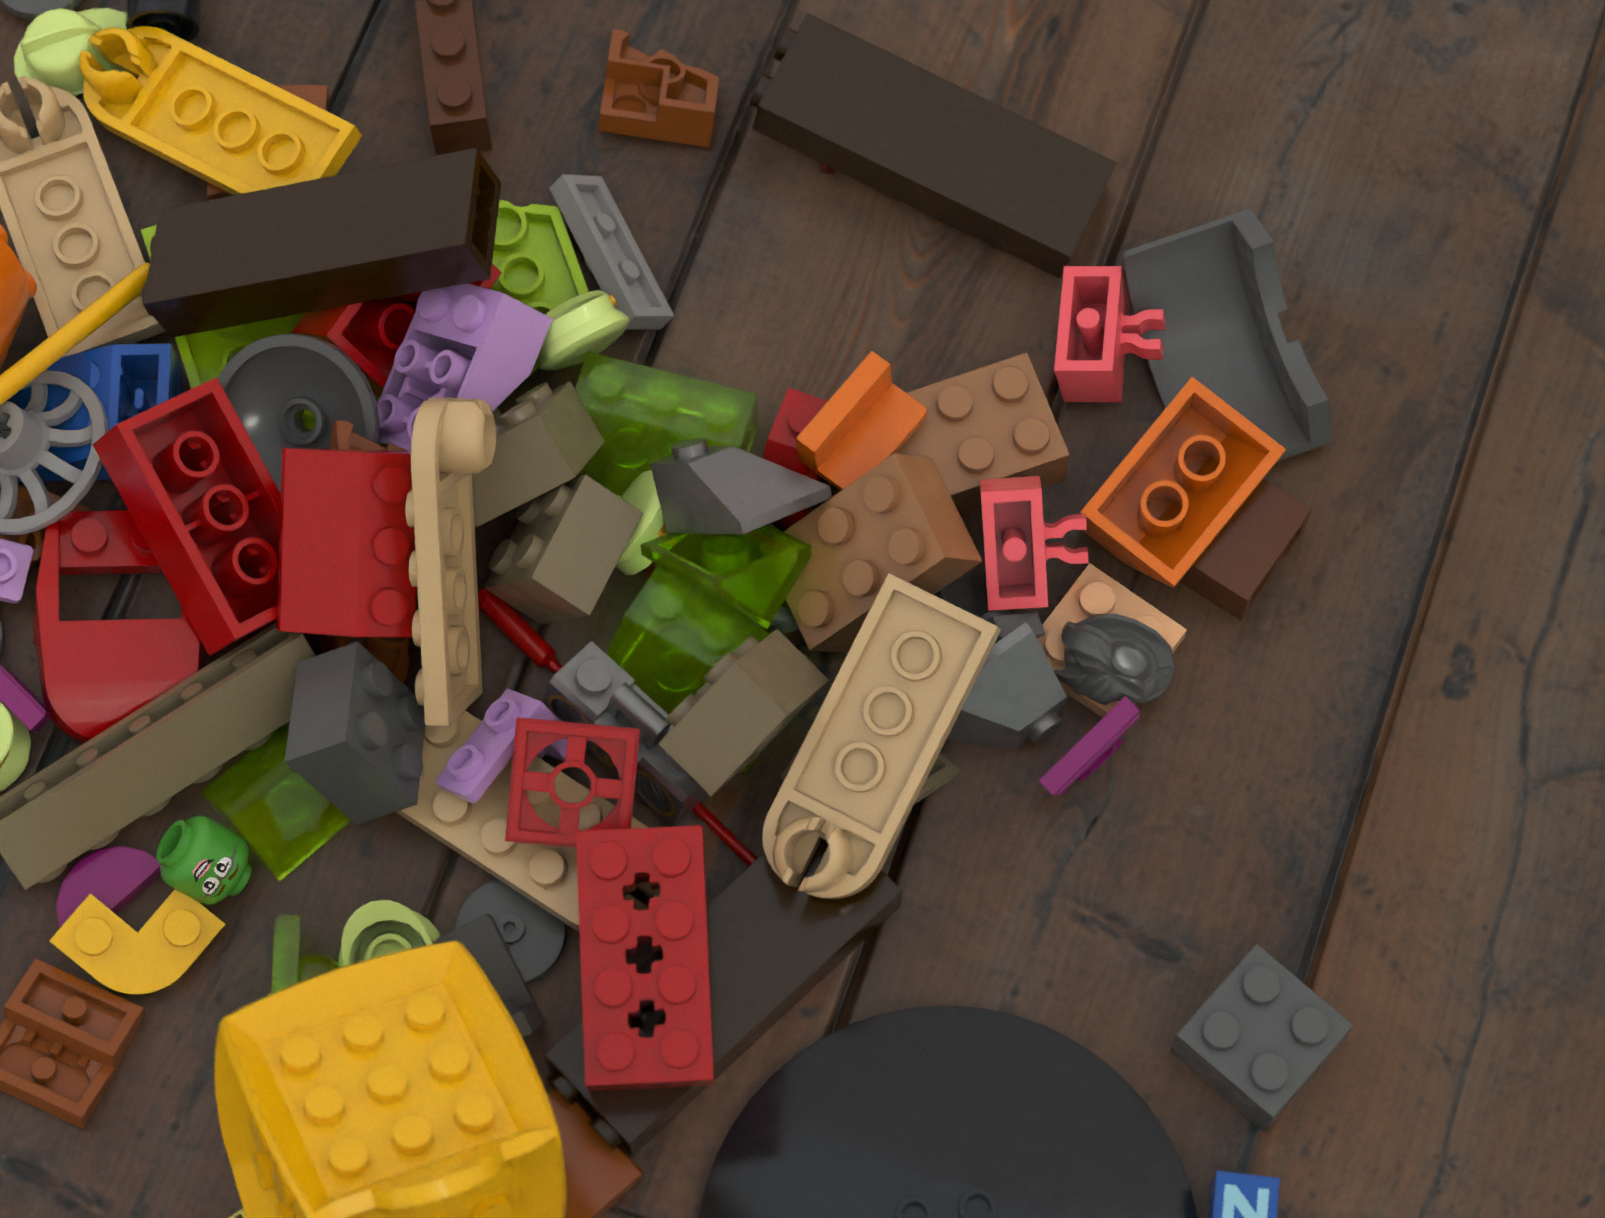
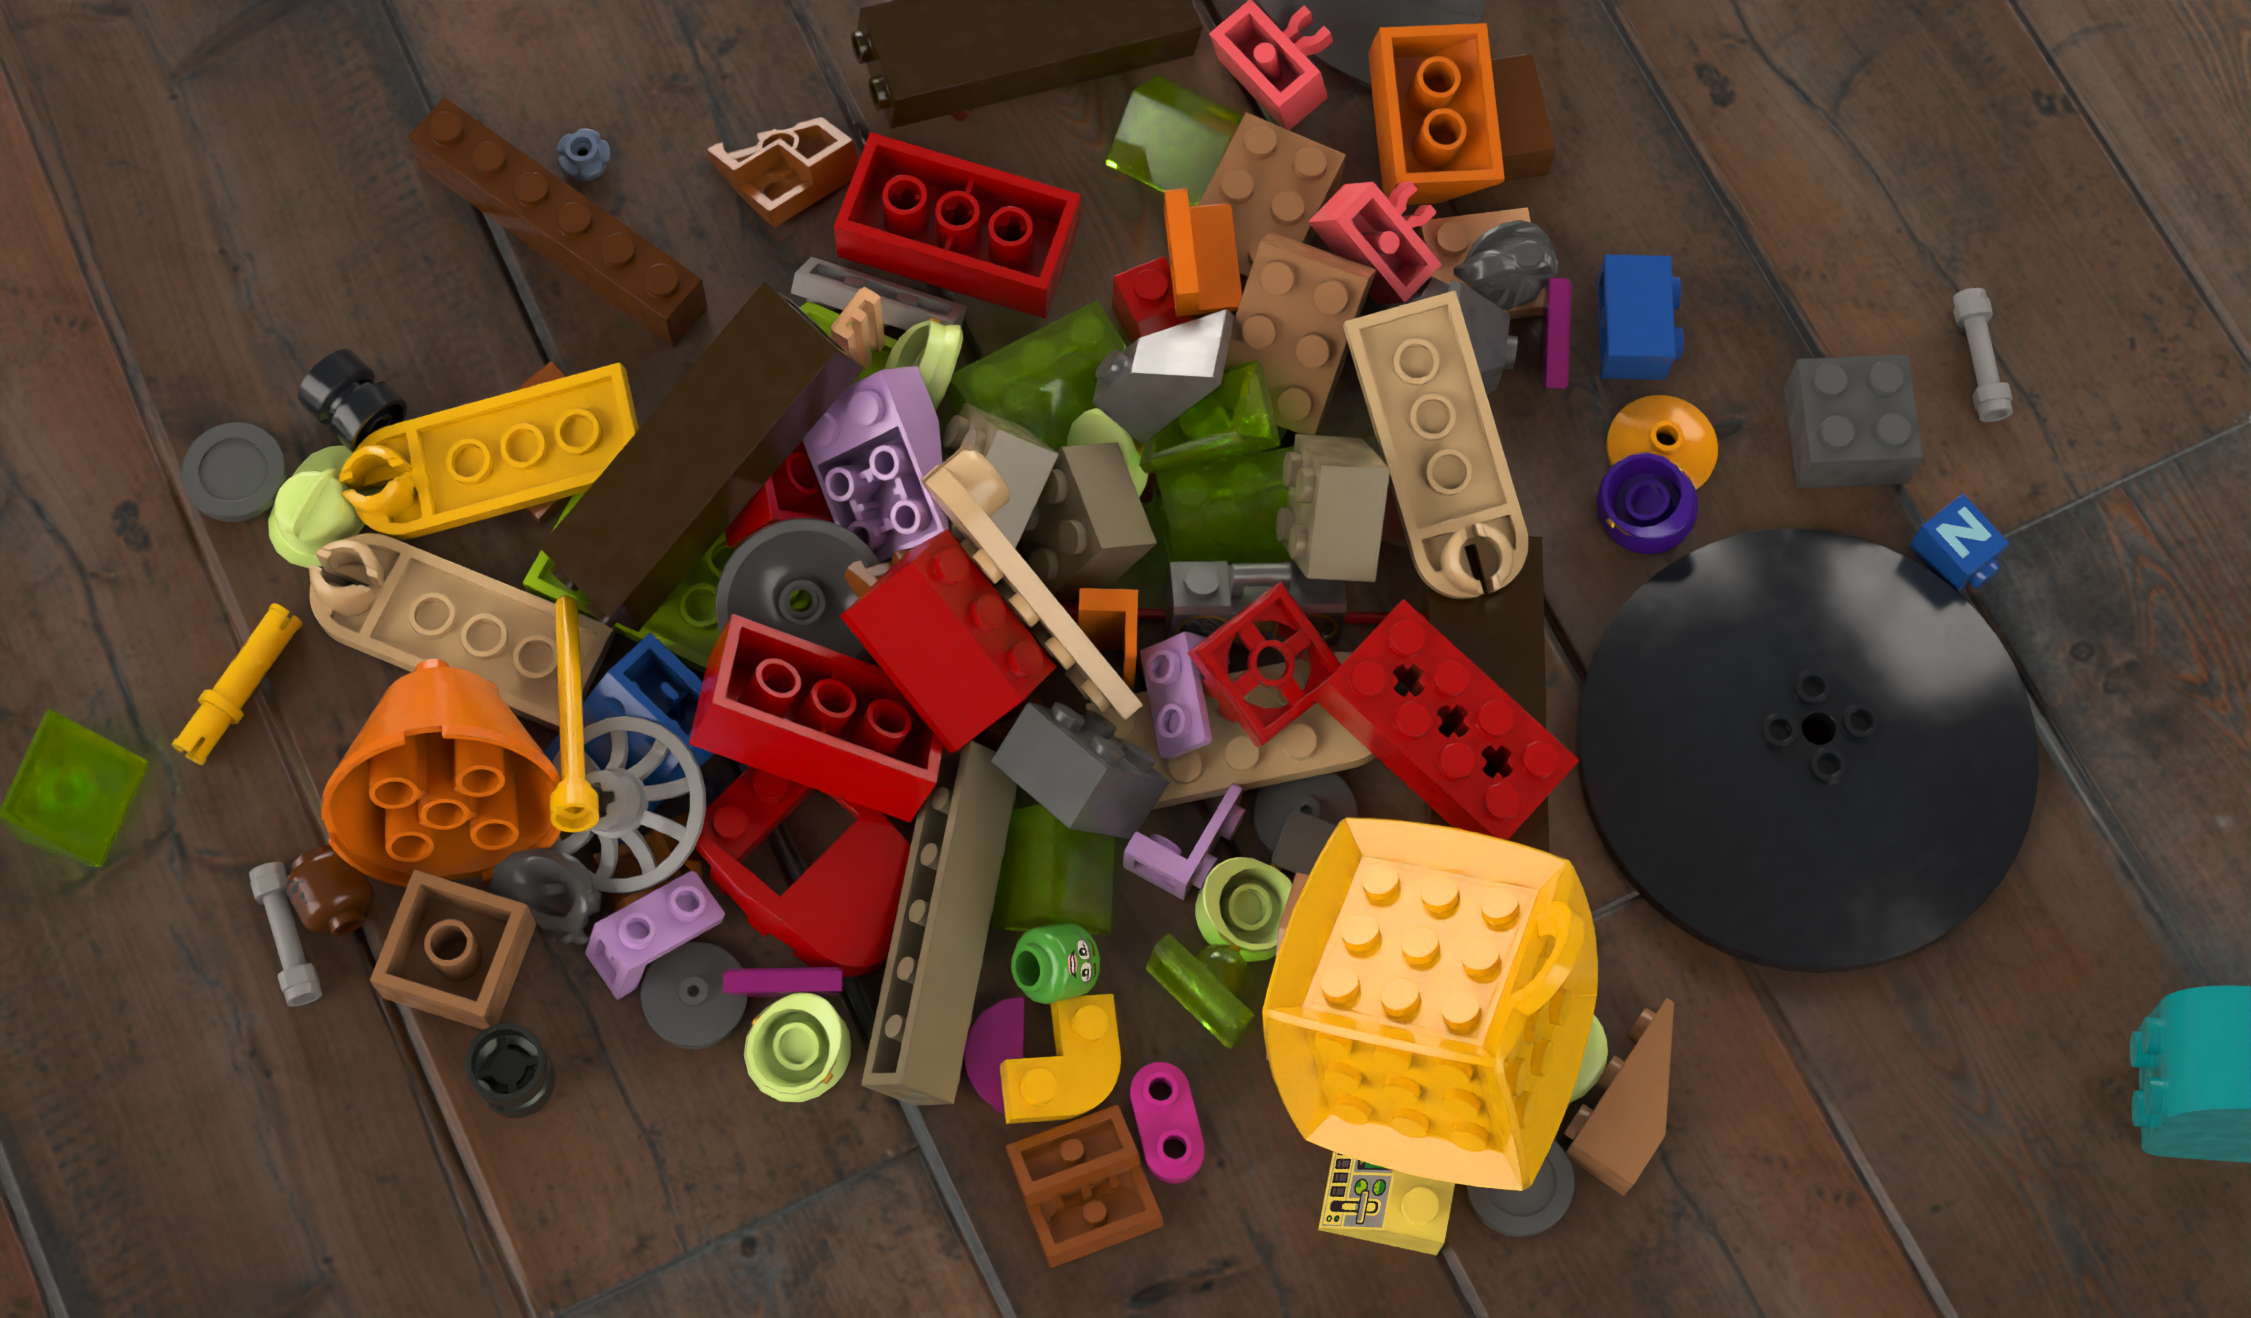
camera: 50 degrees left, 0 degrees up
(168, 1056) = (1166, 1121): none -> dark pink plate
(363, 857) = (1160, 859): none -> lavender bracket
(511, 654) = (1111, 624): none -> orange panel
(545, 275) = (867, 329): none -> light nougat tile
(705, 196) = (957, 225): none -> red brick
(969, 320) = (1172, 138): none -> clear neon green slope
(1028, 946) = (1647, 503): none -> dark purple piece
(1088, 944) = (1641, 420): none -> light orange dish
(1178, 795) = (1638, 317): none -> blue brick
(1466, 1050) = (1991, 397): none -> light grey bar

